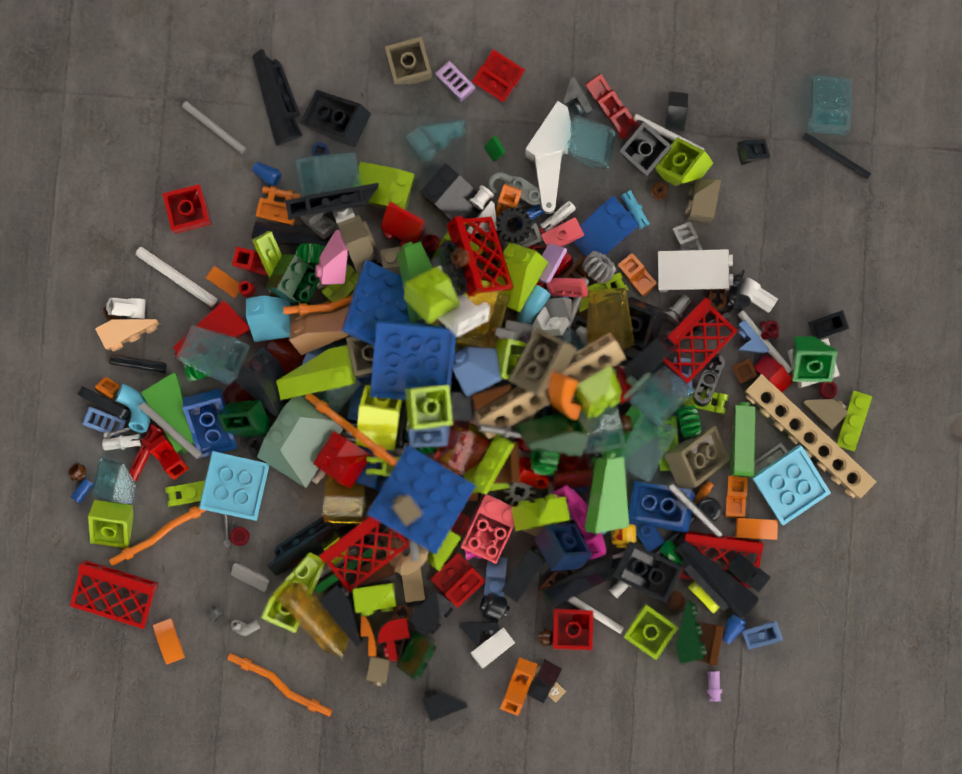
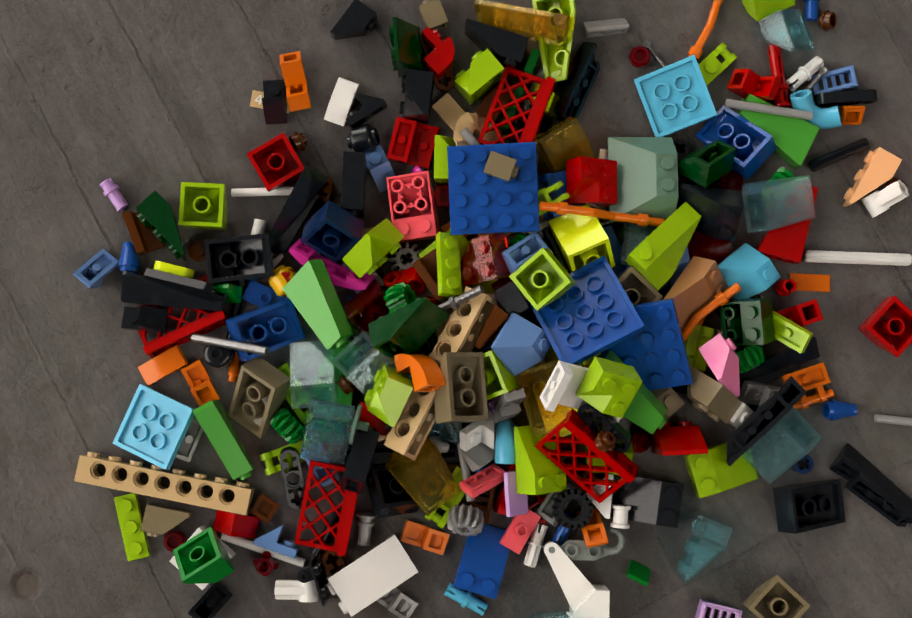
camera: 140 degrees right, 0 degrees up
(367, 630) = (465, 44): orange slope -> none

